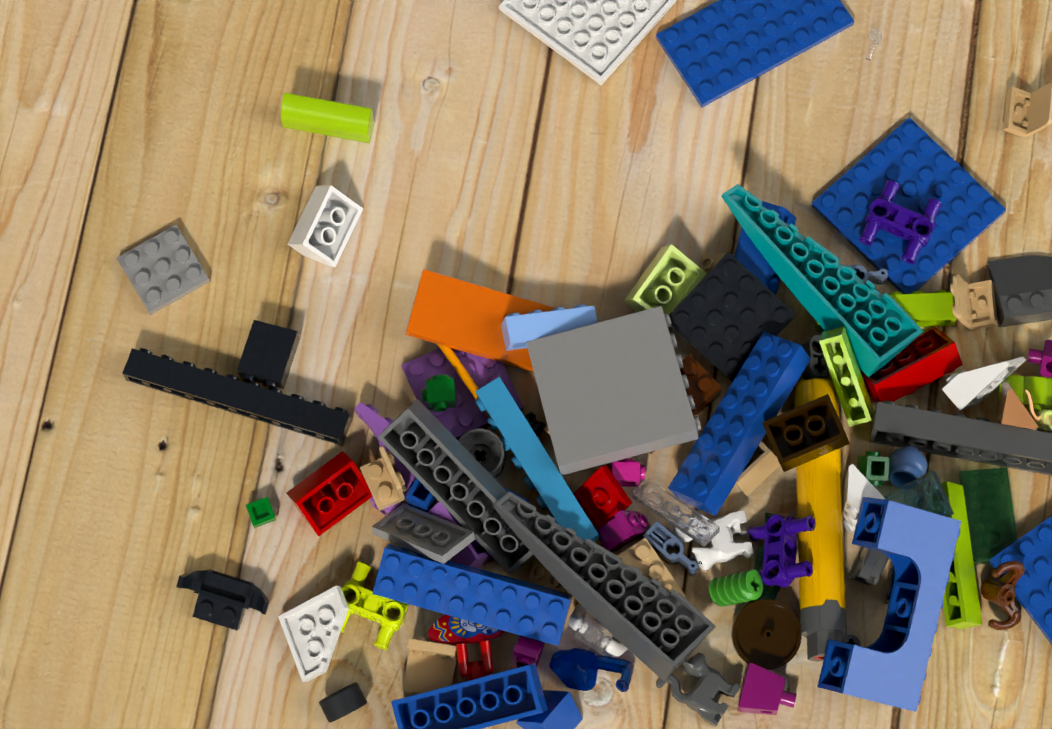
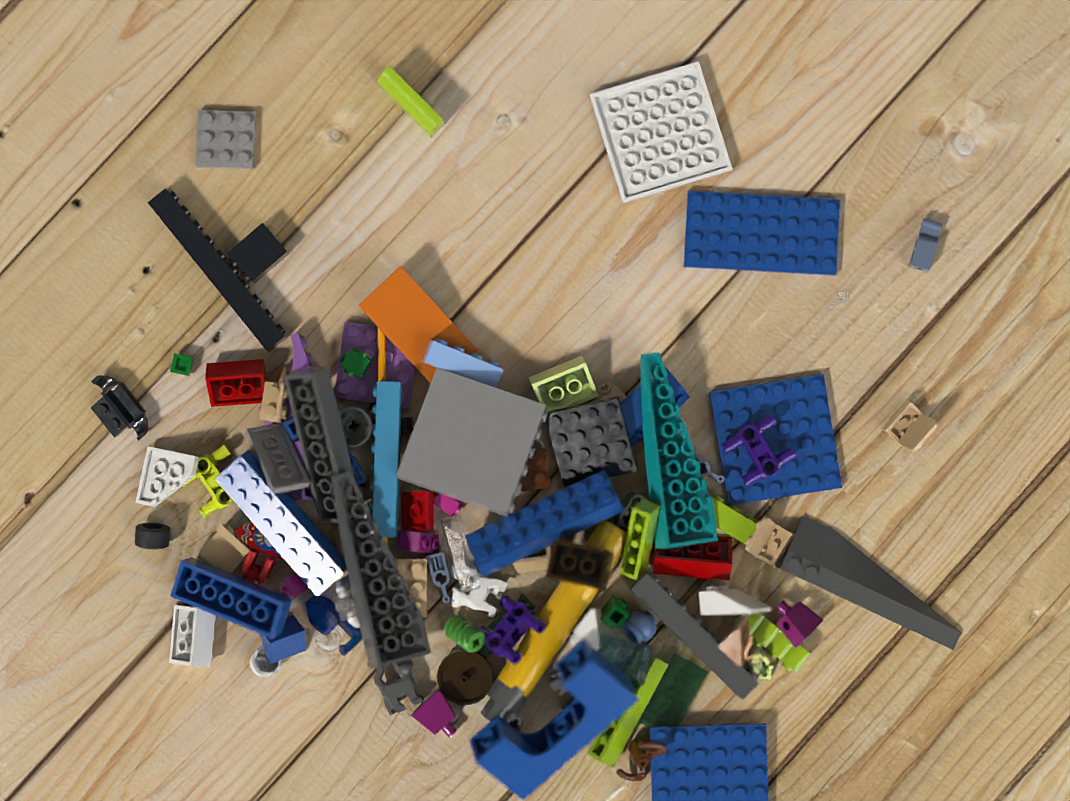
camera: 30 degrees right, 15 degrees up
(325, 225) = (358, 182): white slope -> none

